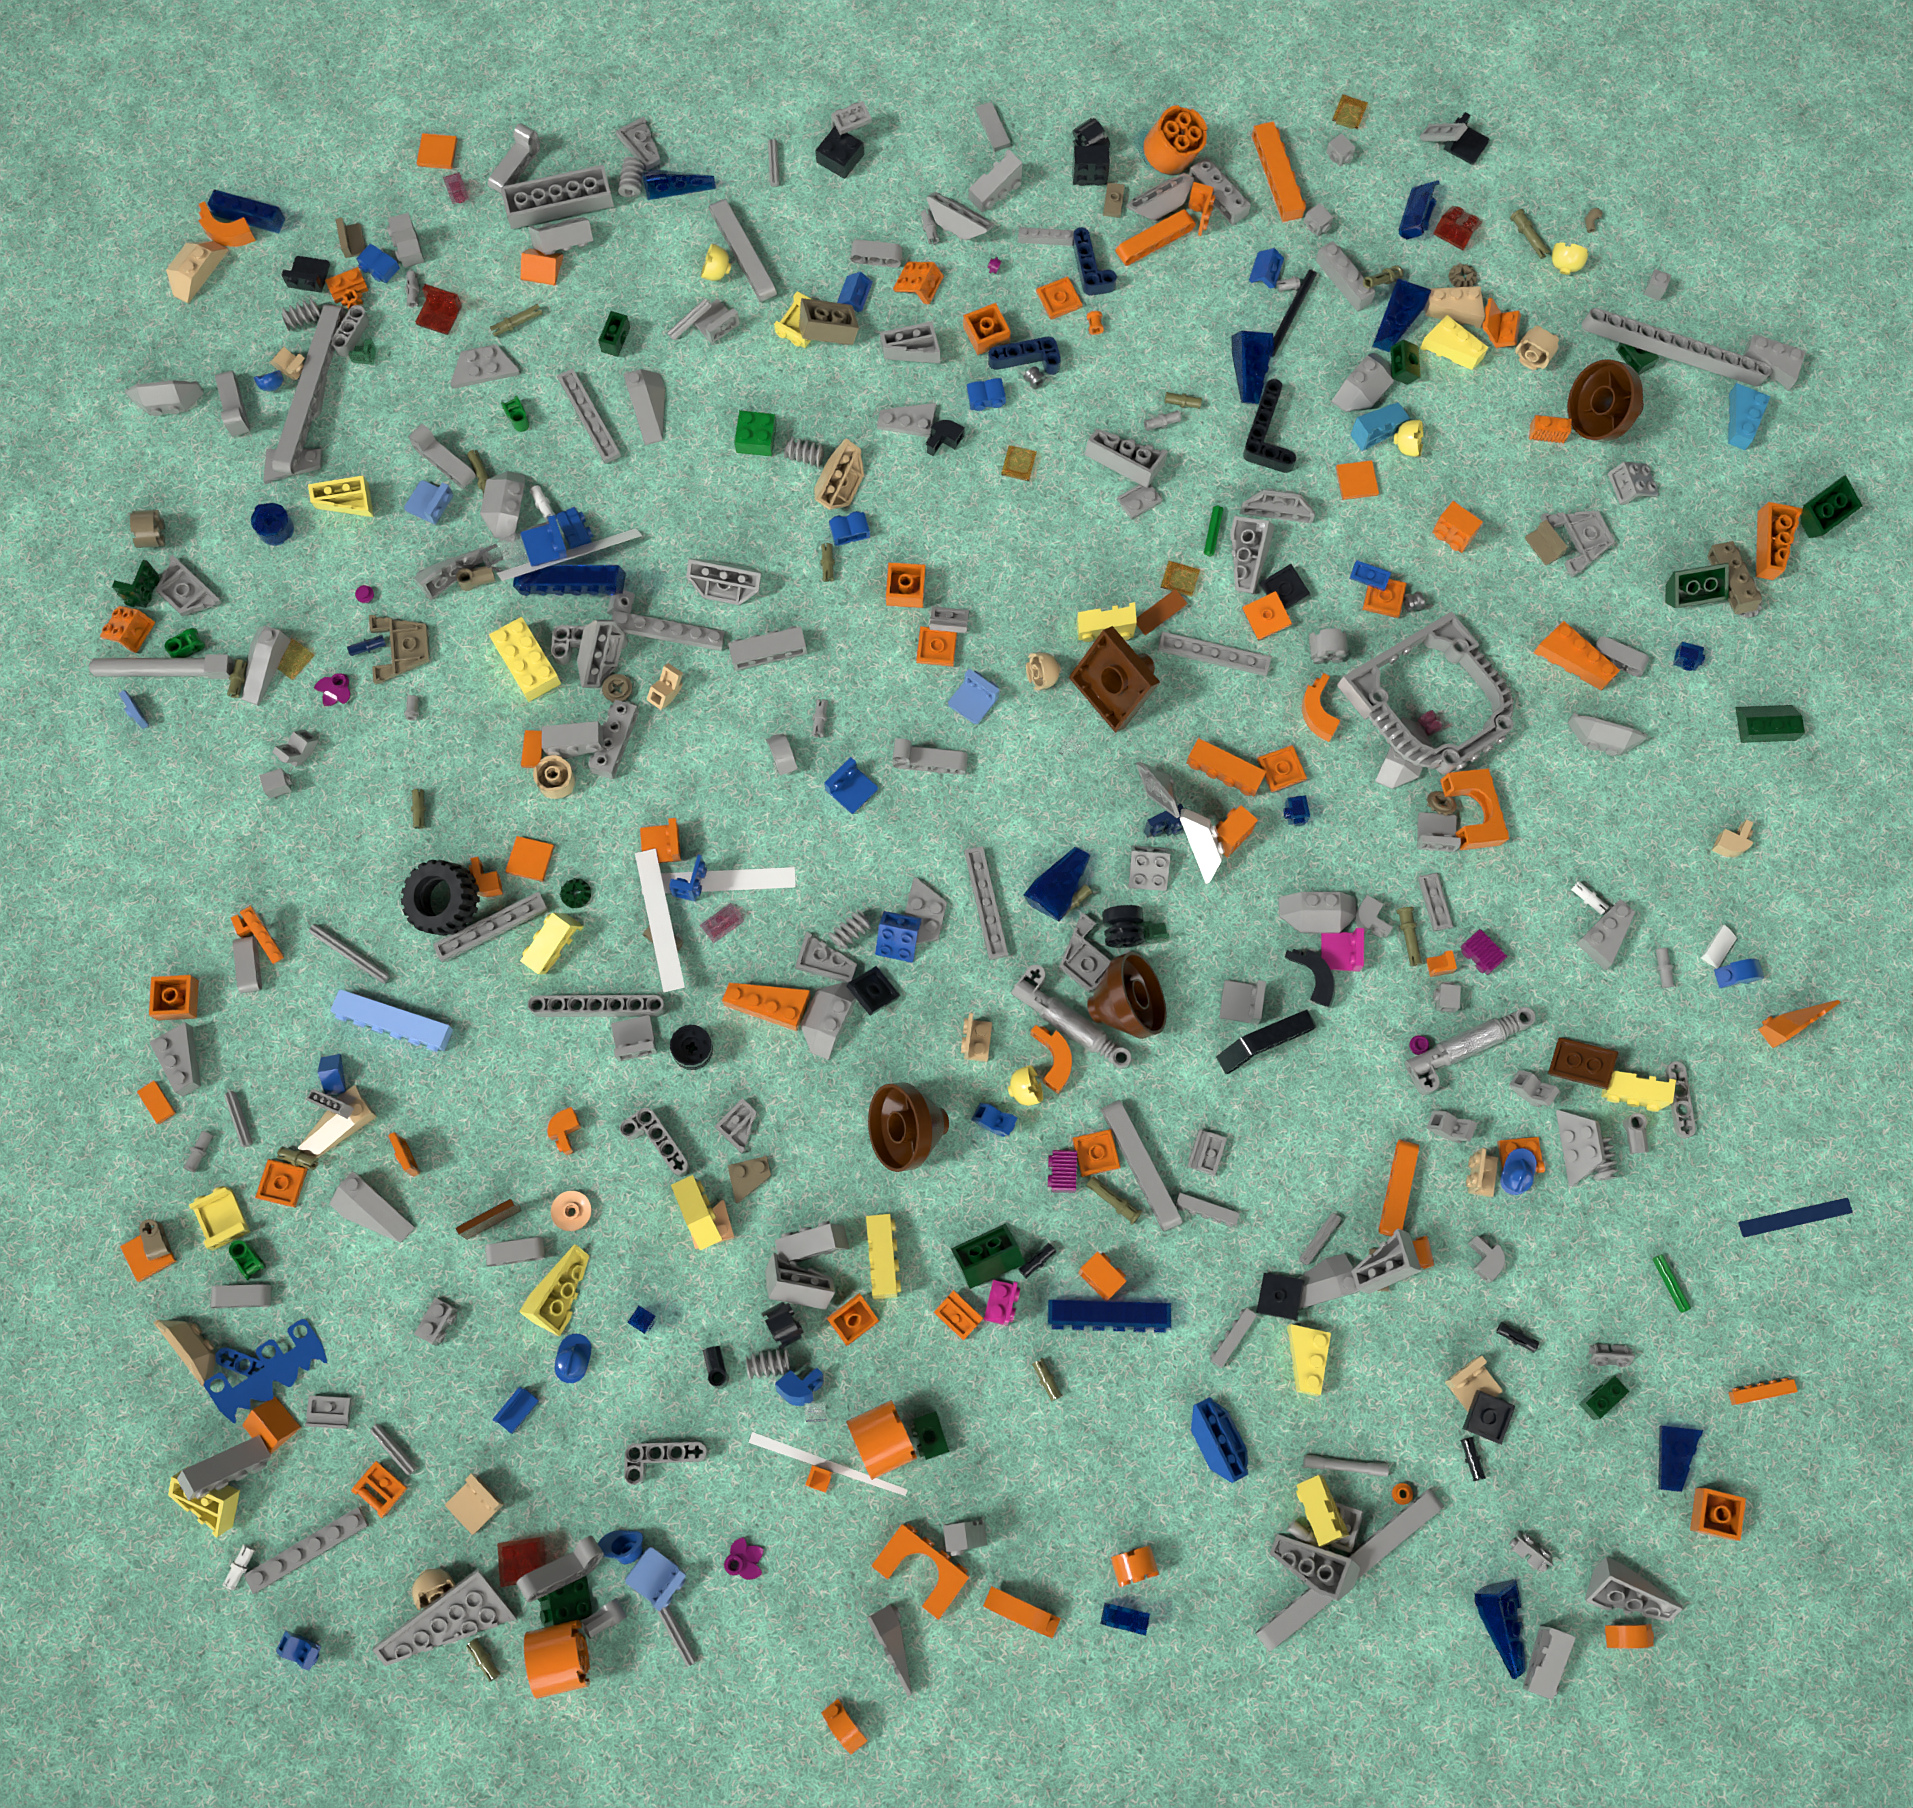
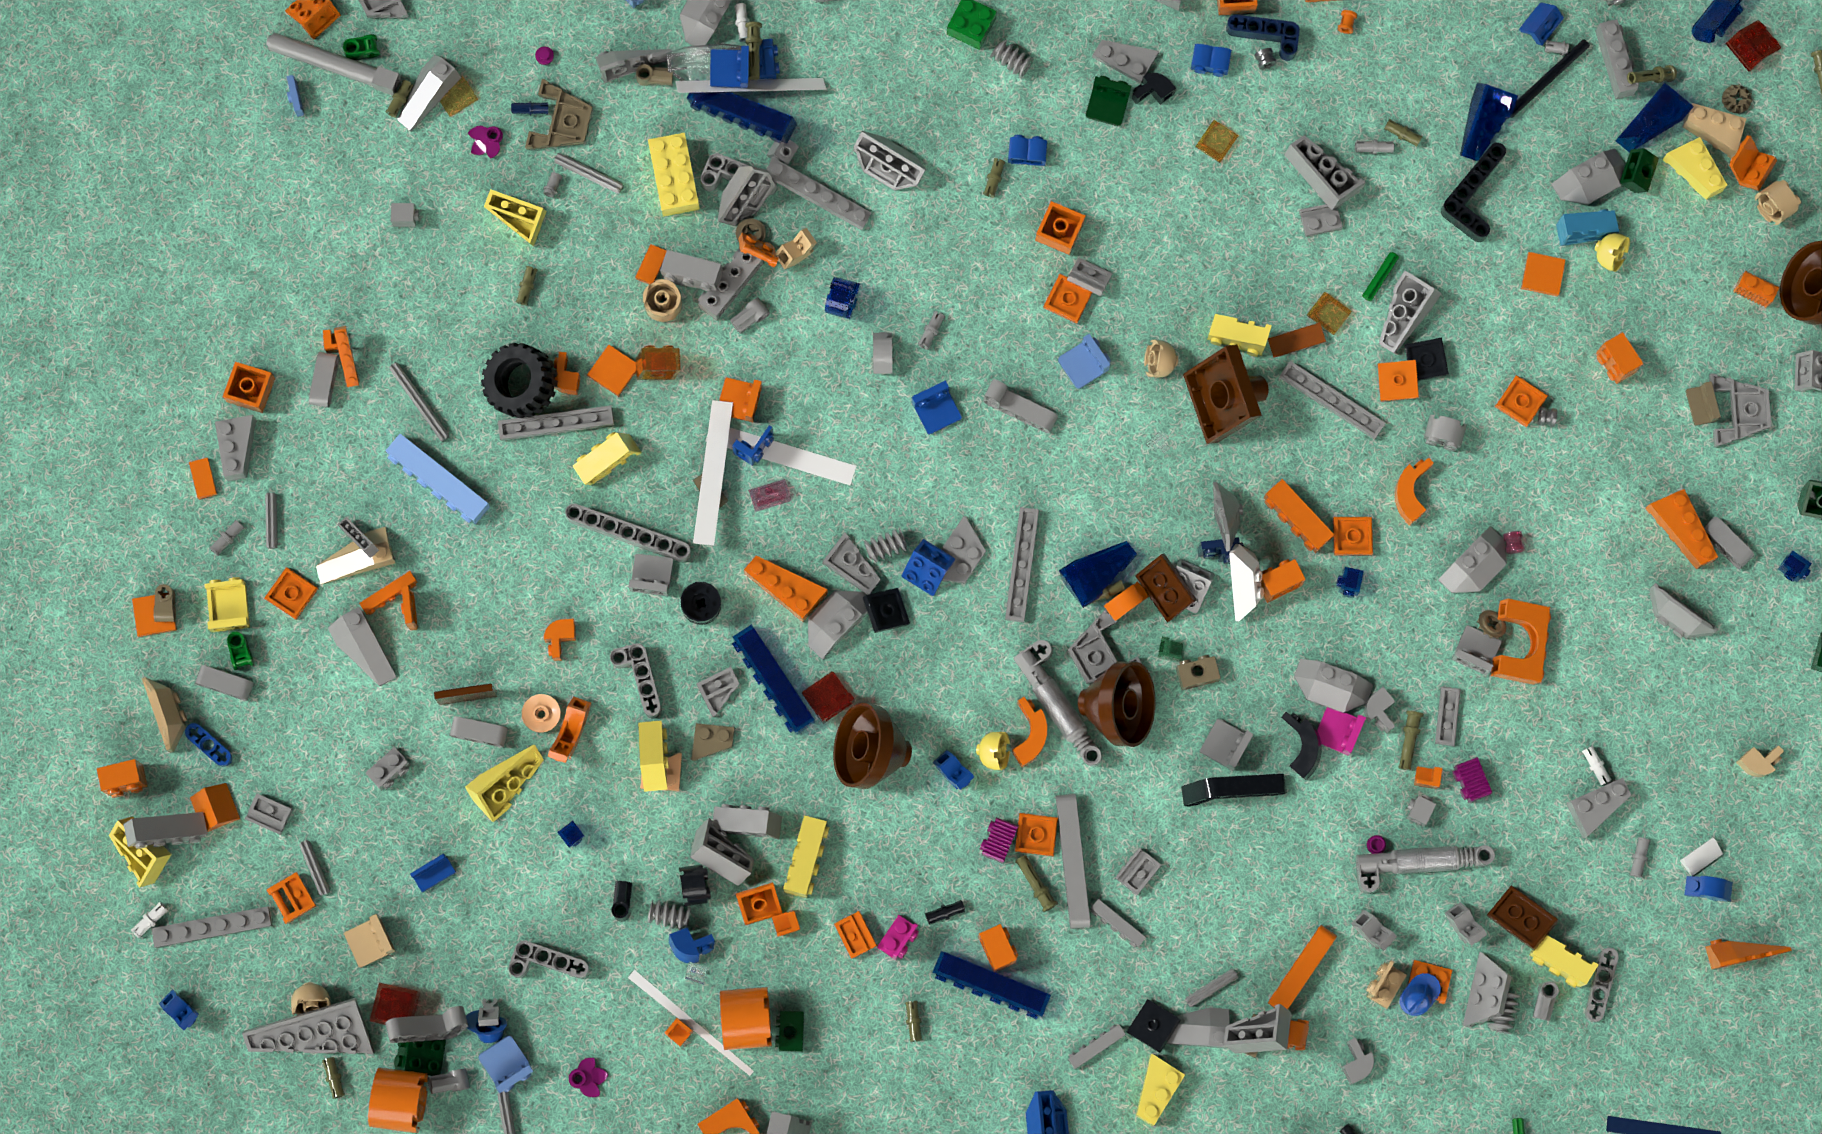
camera: 20 degrees right, 5 degrees up
(163, 1431) = (122, 777): none -> orange brick
(279, 1368) = (238, 759): blue piece -> none
(297, 749) = (434, 187): light grey brick -> none
(298, 1158) = (313, 576): olive pin -> none
(332, 1074) = (367, 509): blue slope -> none
(378, 1149) = (387, 593): none -> orange piece
(385, 745) = (517, 214): none -> light yellow wedge
(443, 686) = (588, 173): none -> light grey axle
(557, 509) = (753, 41): none -> olive pin
(570, 835) = (658, 363): none -> clear orange brick
(572, 1358) = (498, 845): blue piece -> none
(582, 897) = (649, 425): dark green gear -> none
(606, 1216) = (571, 730): none -> orange arch
(621, 1533) = (489, 1014): none -> light grey plate
(634, 698) = (757, 248): none -> orange plate
(645, 759) = (754, 312): none -> light grey piece
(725, 716) = (842, 298): none -> clear blue brick
(767, 648) = (906, 244): light grey brick -> none
(788, 1095) = (773, 679): none -> clear blue brick
(840, 477) = (1036, 96): tan wedge -> none
(847, 1093) = (828, 697): none -> clear red bracket
(886, 1329) = (785, 923): none -> orange panel
(906, 459) = (1108, 101): none -> dark green bracket
(977, 1041) = (966, 689): tan bracket -> none
(988, 1256) = (901, 891): dark green slope -> none
(1097, 901) = (1126, 601): none -> orange brick
(1123, 926) = (1141, 634): black wheel -> none
(1129, 875) = (1165, 587): none -> reddish brown tile
(1183, 953) = (1189, 680): none -> dark tan brick
(1278, 505) = (1453, 273): light grey wedge -> none
(1370, 575) = (1514, 376): blue panel -> none
(1453, 639) = (1563, 462): light grey arch -> none

